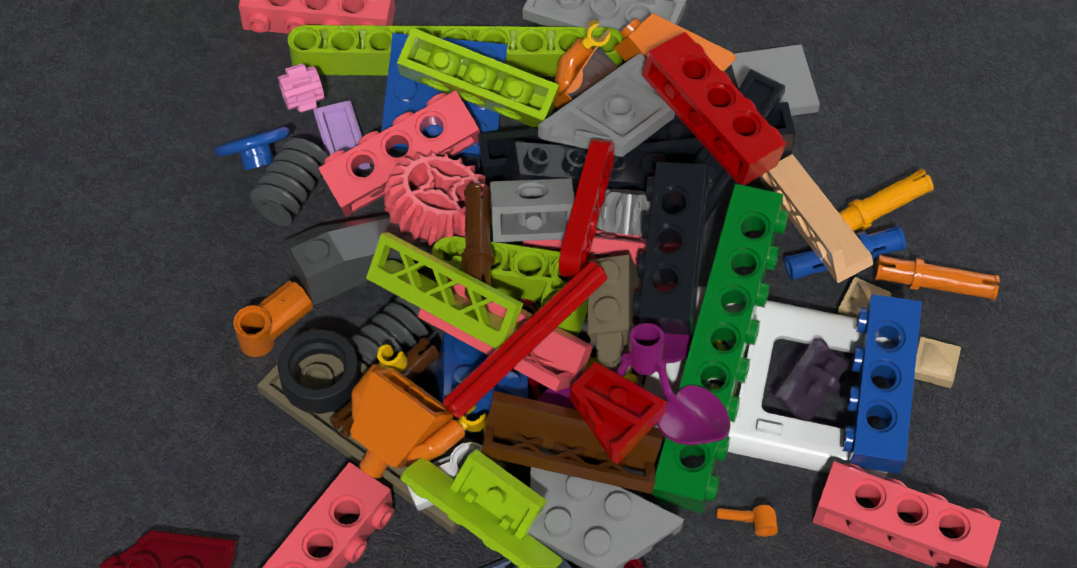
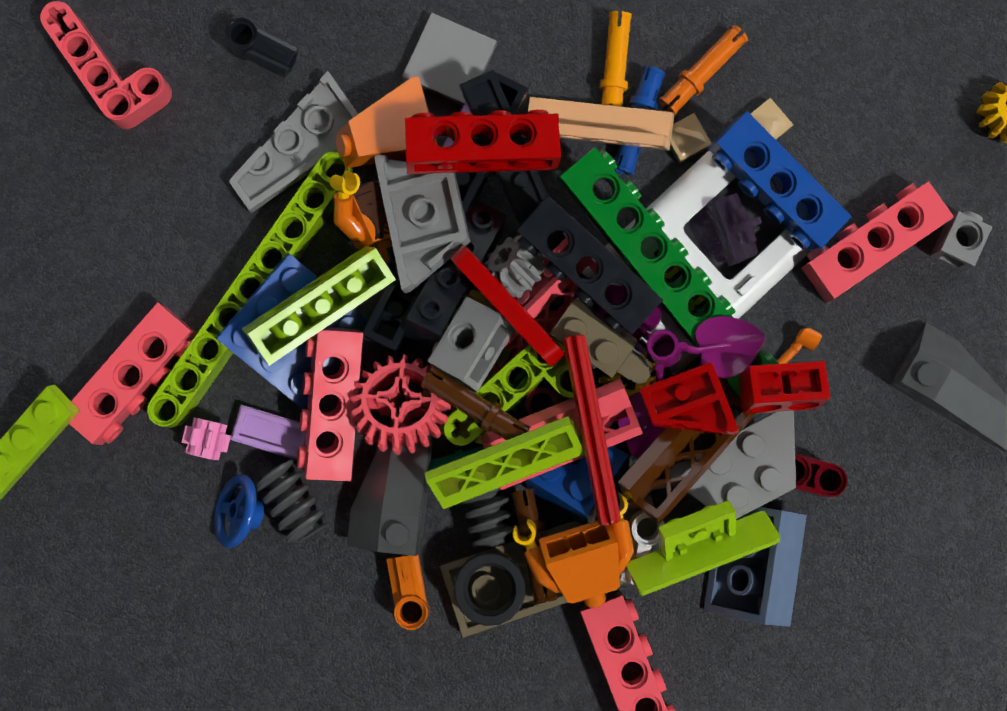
camera: 55 degrees left, 25 degrees up
(691, 484) = (784, 387): none -> red brick

